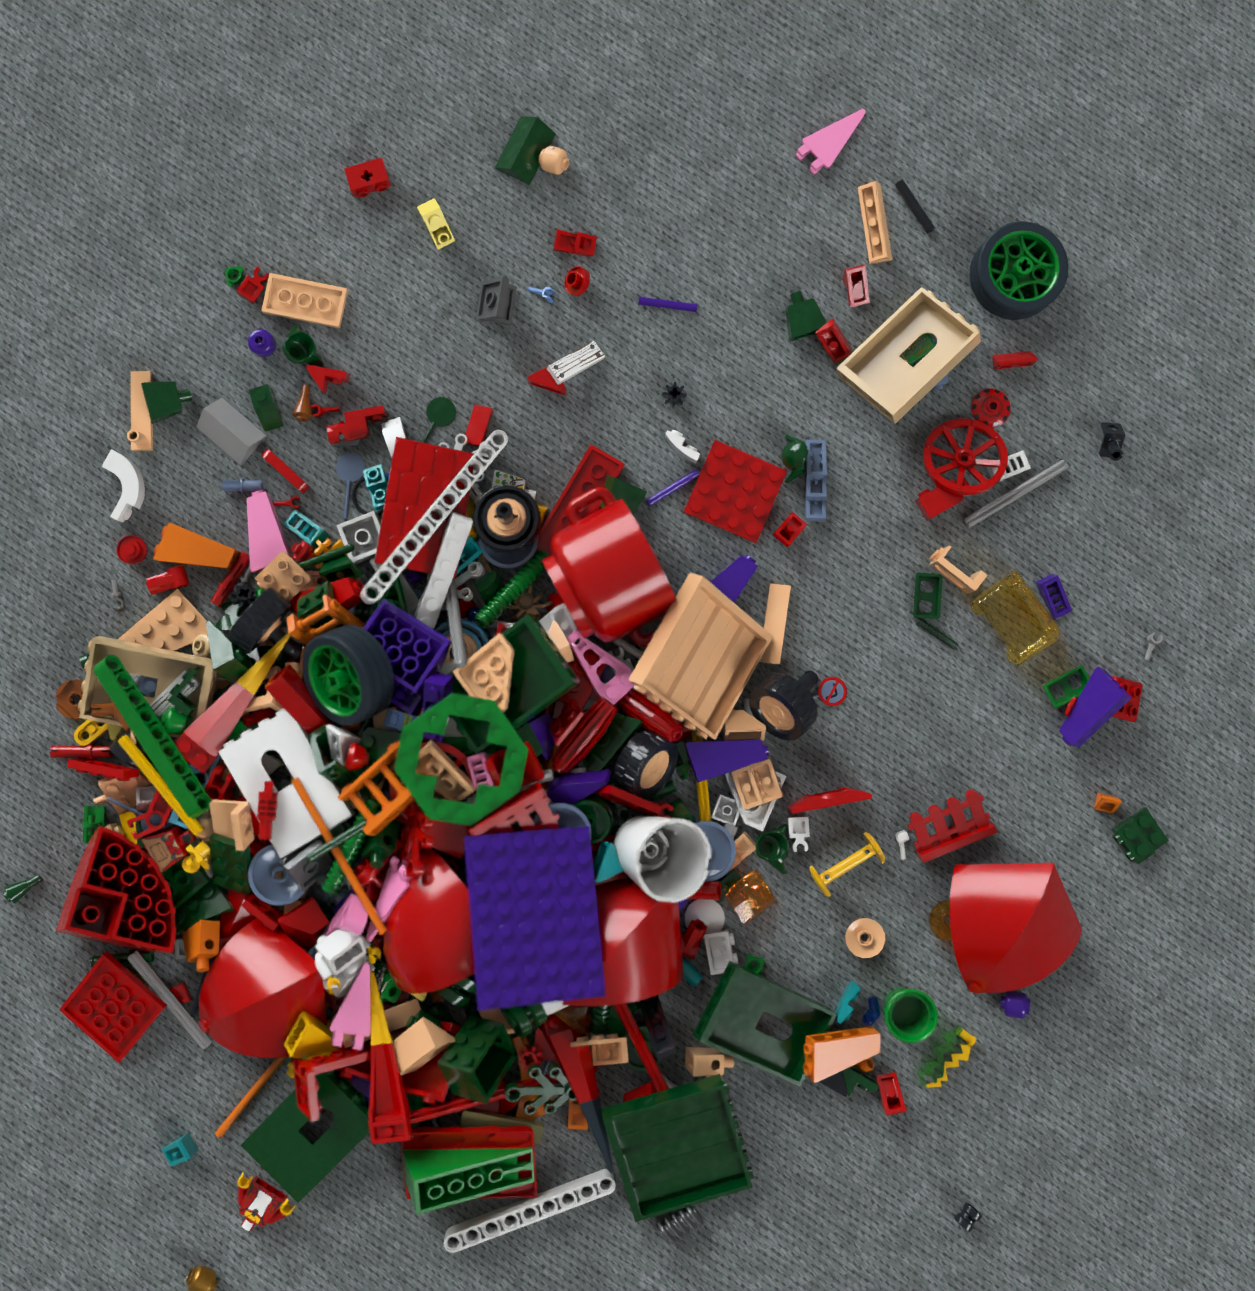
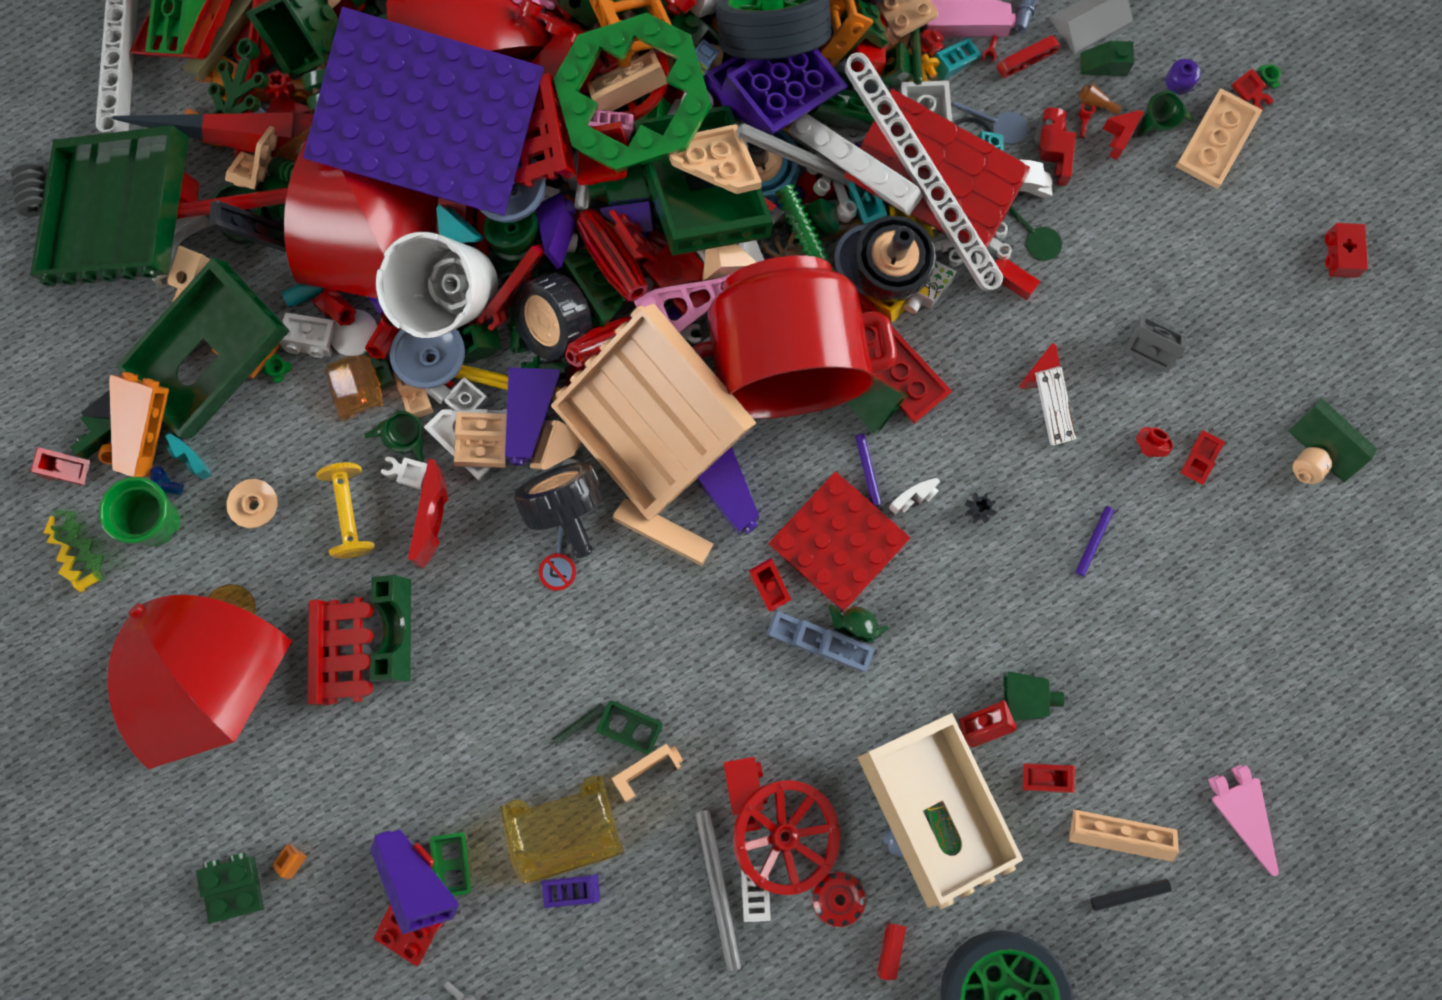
camera: 110 degrees right, 10 degrees down
(436, 223) = (1270, 306): light yellow slope -> none
(436, 688) = (723, 96): dark purple slope -> none
(545, 293) = (1149, 403): medium blue hand -> none
(902, 837) = (351, 590): white hand -> none
(941, 785) = (393, 658): none -> dark green arch
(1015, 1004) = (95, 653): dark purple head -> none

